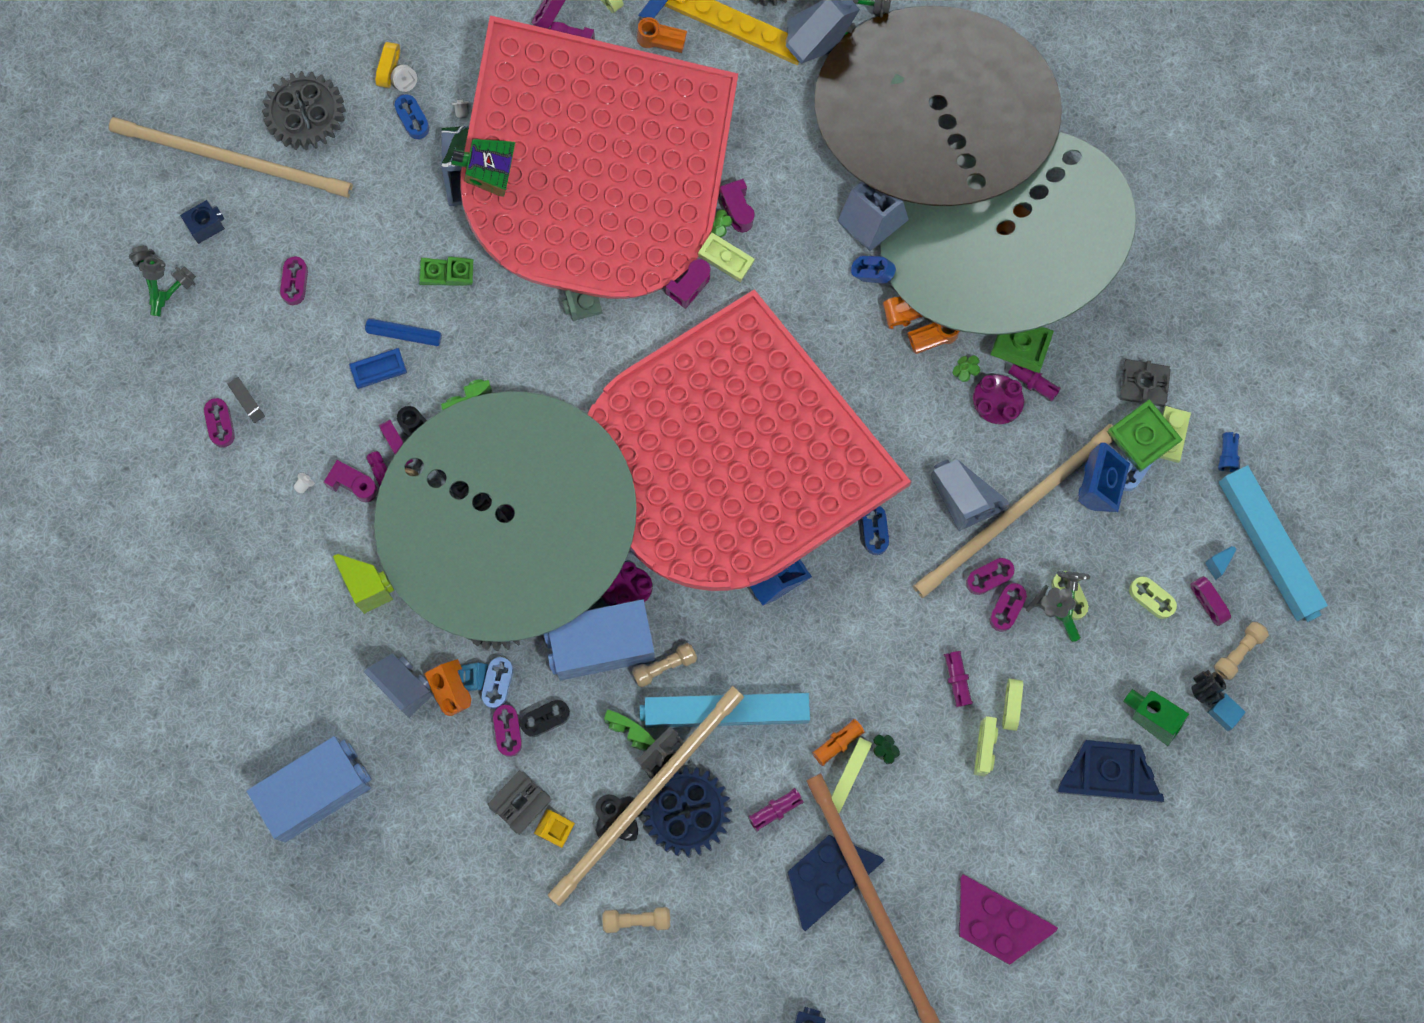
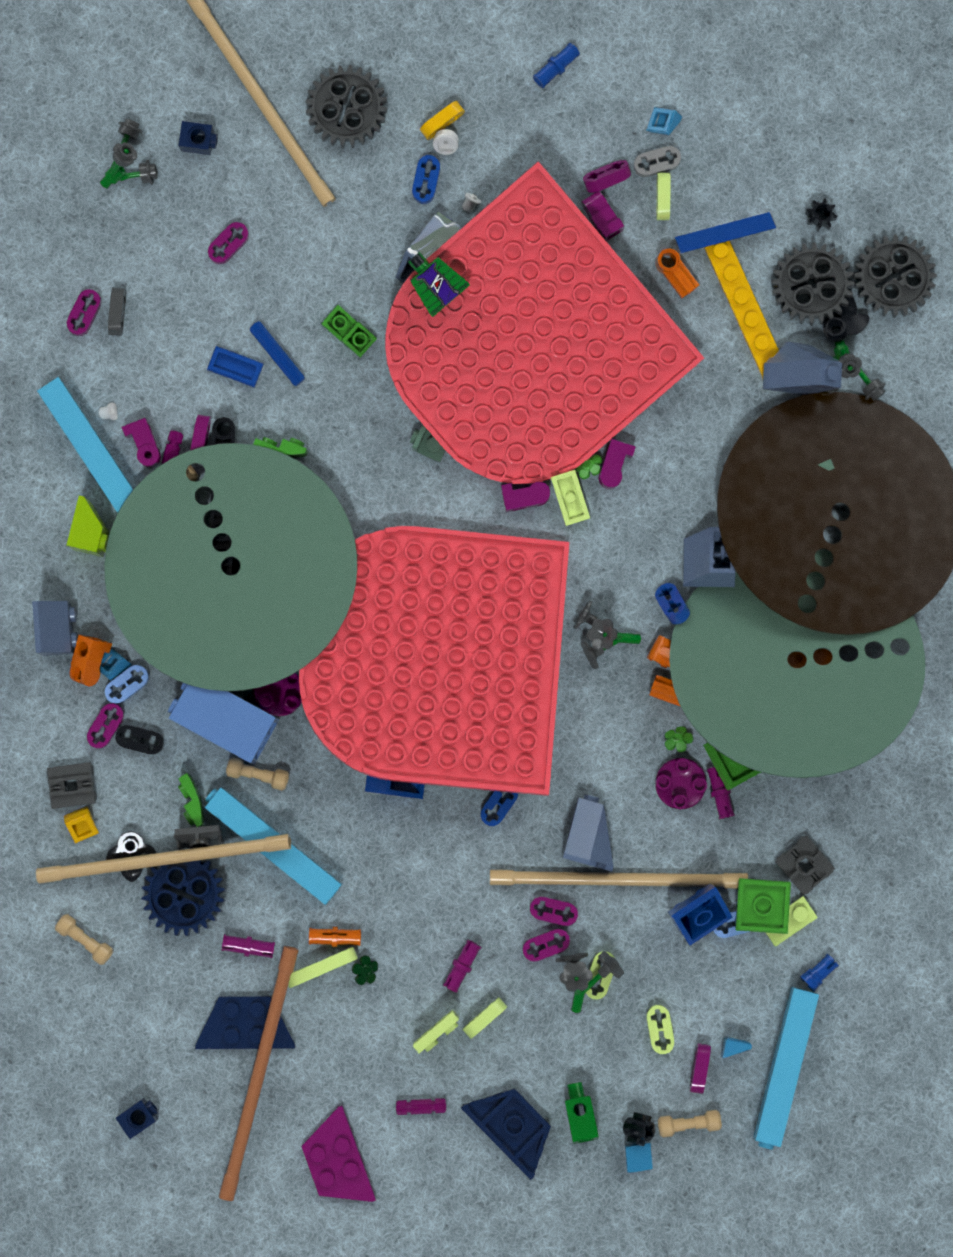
camera: 45 degrees right, 10 degrees up
(304, 518) = (86, 442): none -> medium azure brick
(842, 328) = (602, 635): none -> dark grey plant
(1025, 820) = (420, 1106): none -> magenta axle

